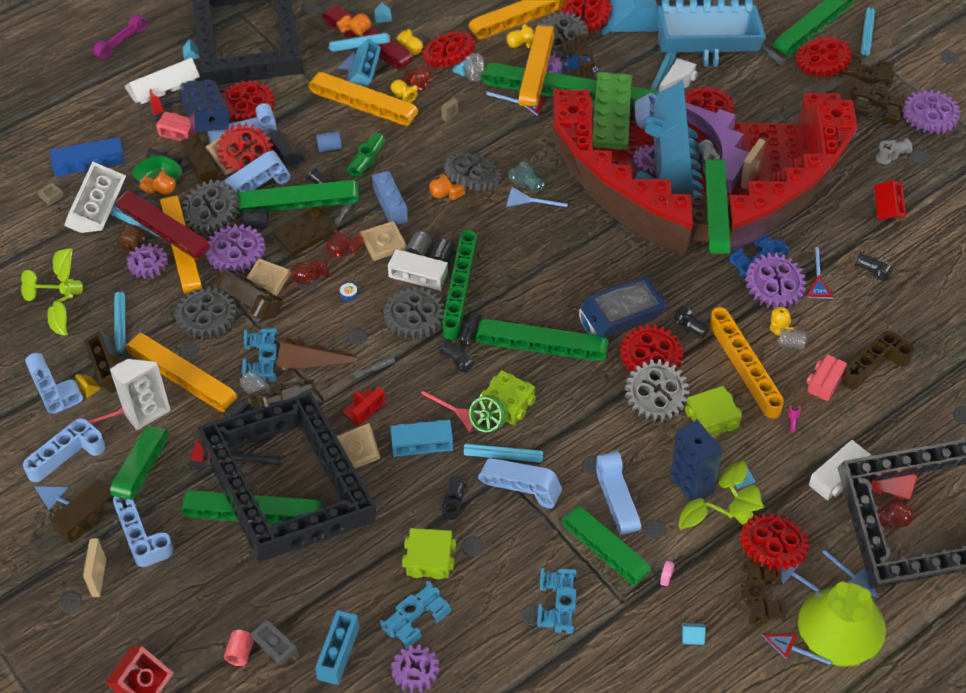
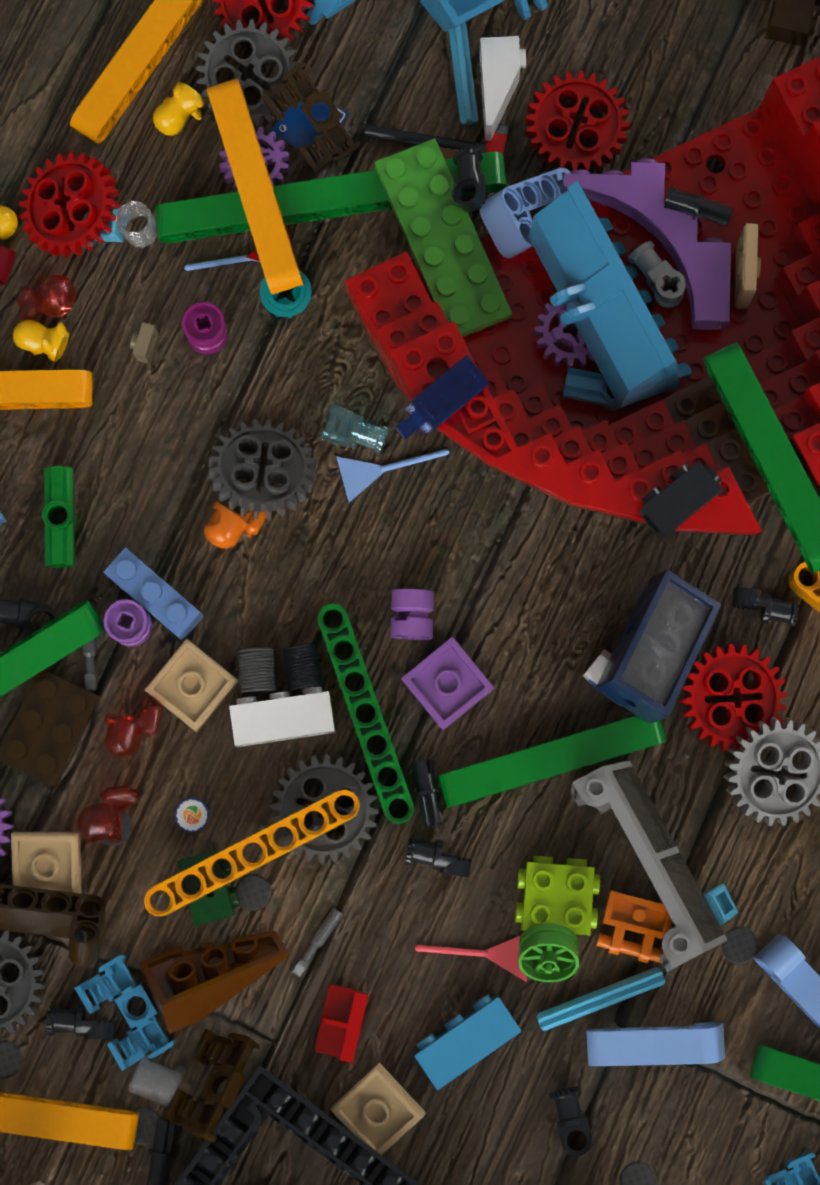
camera: 30 degrees left, 30 degrees up
(236, 347) = (75, 1022): none -> black connector
(335, 319) = (209, 908): none -> dark green brick
(367, 304) = (235, 854): none -> light orange beam
(370, 203) = (128, 623): none -> medium lavender wheel
(481, 113) = (205, 328): none -> magenta wheel
(508, 253) = (412, 613): none -> medium lavender wheel
(508, 289) = (447, 683): none -> medium lavender plate
(531, 113) = (286, 307): none -> teal gear
(545, 424) = (635, 915): none -> orange plate
(564, 420) = (621, 790): none -> light grey windscreen
(567, 114) = (443, 398): none -> clear blue hinge
(590, 439) = (721, 903): none -> medium azure slope
(637, 90) = (469, 179): none -> black connector
(657, 189) = (682, 499): none -> black brick
(741, 131) = (698, 207): none -> black axle

